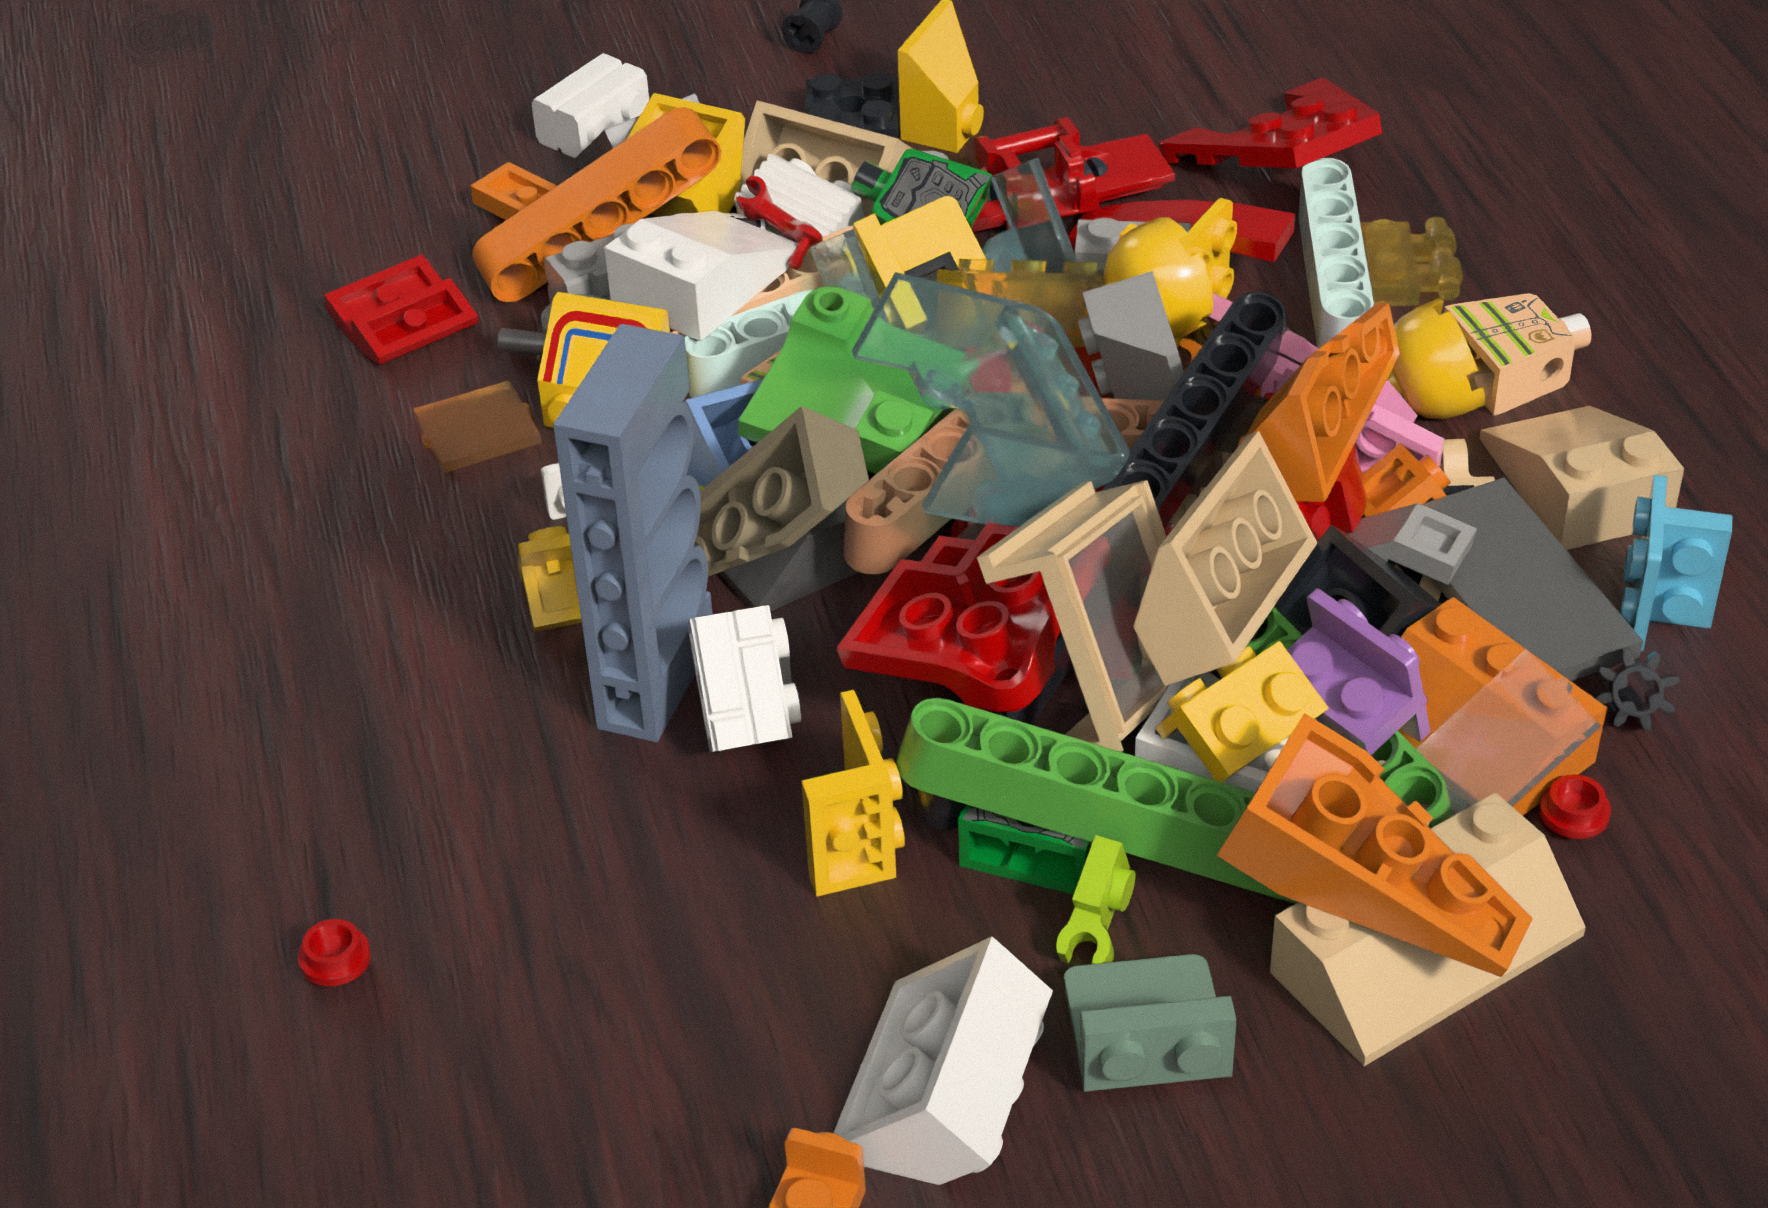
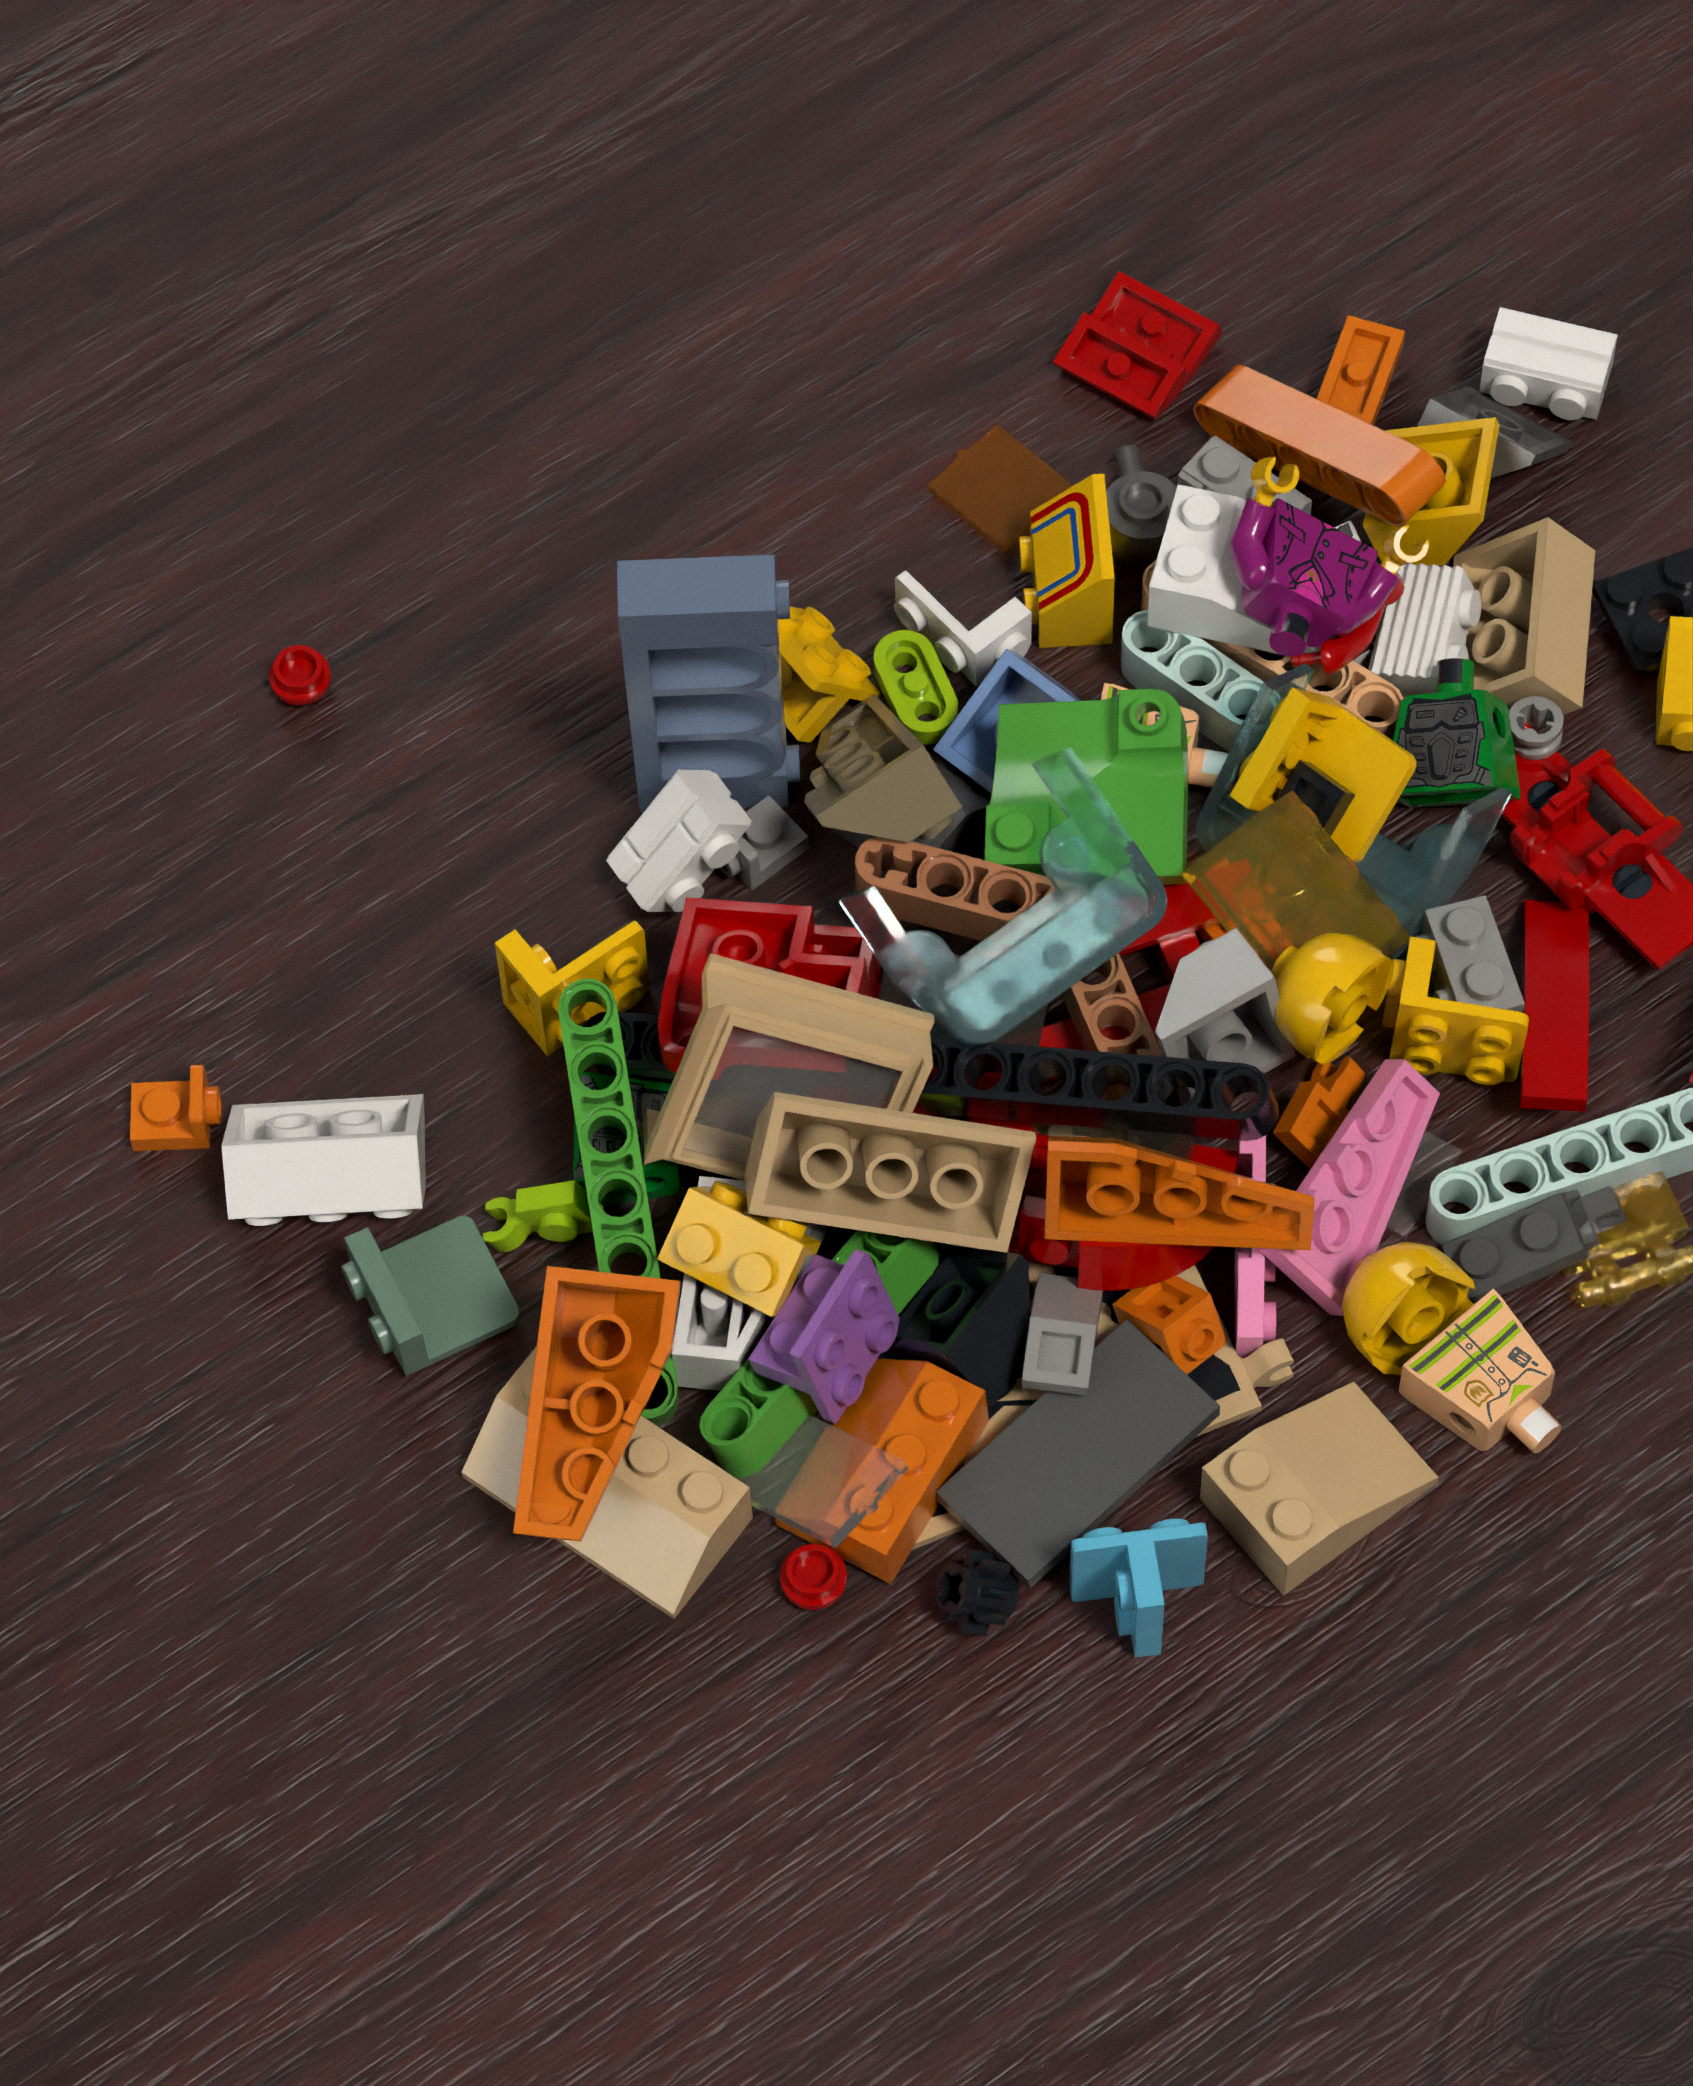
camera: 70 degrees right, 20 degrees up
(736, 198) = (1304, 572): none -> magenta torso
(1399, 267) = (1535, 1241): none -> dark grey hinge

